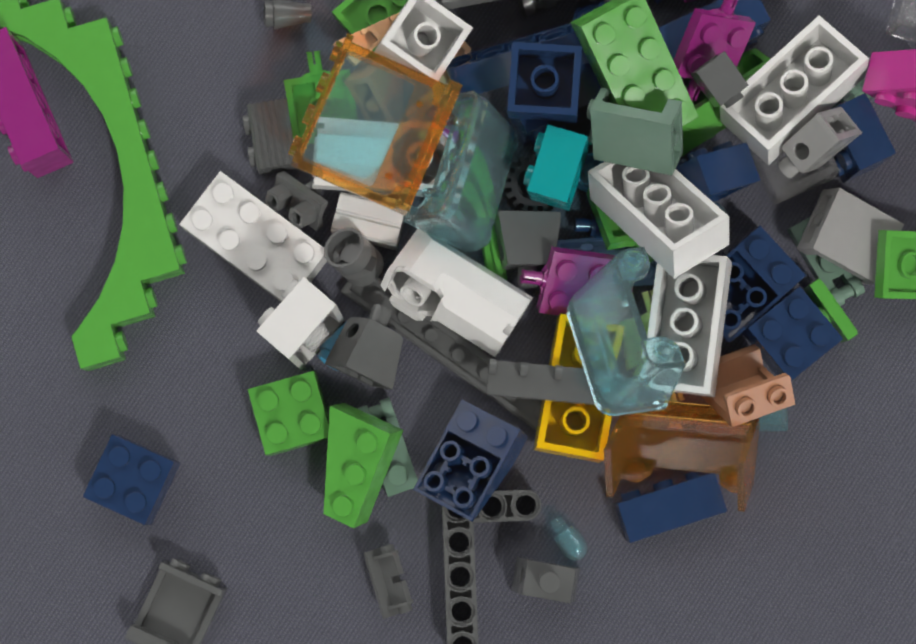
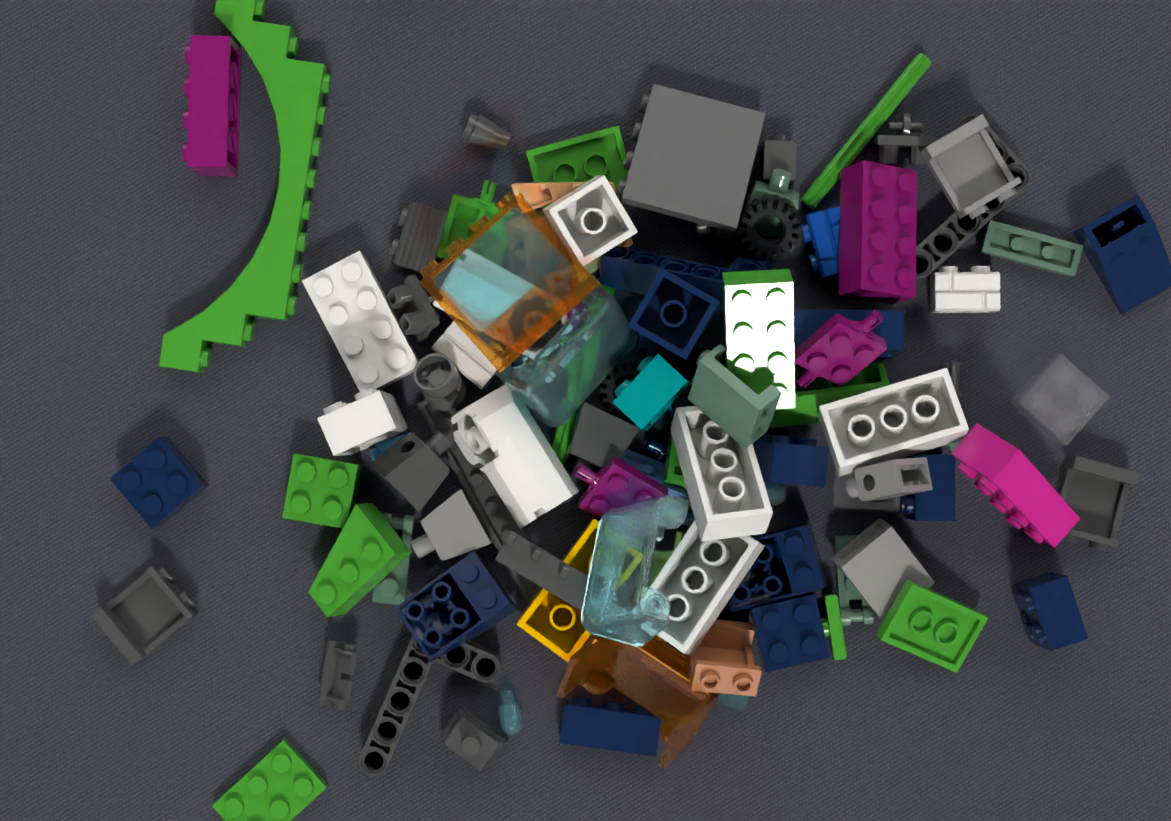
camera: 30 degrees right, 5 degrees up
(430, 391) = (451, 529): none -> light grey torso
(720, 81) = (828, 387): dark grey brick -> none

